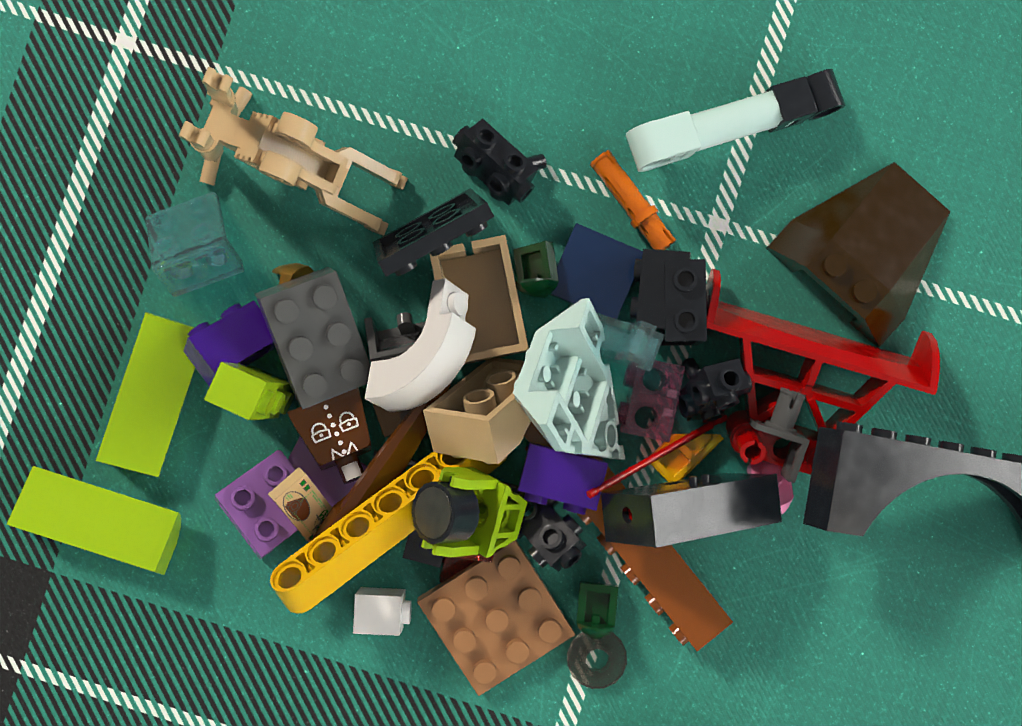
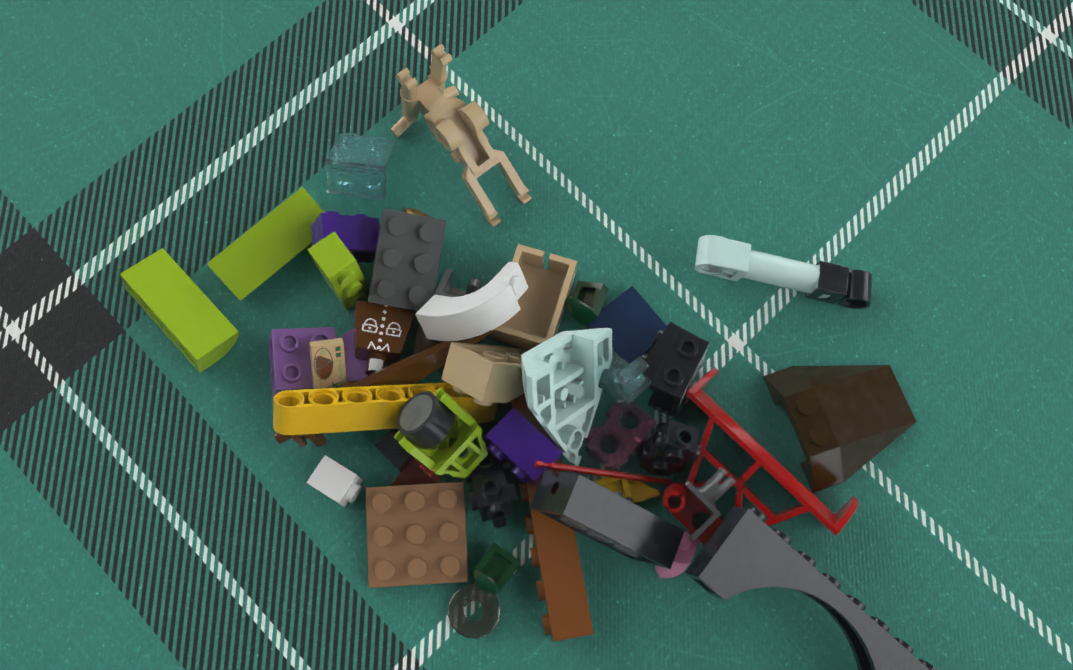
camera: 25 degrees right, 15 degrees down
(432, 232) = (526, 232): black plate -> none
(496, 162) = (598, 216): black brick -> none
(628, 196) = (683, 305): orange pin -> none

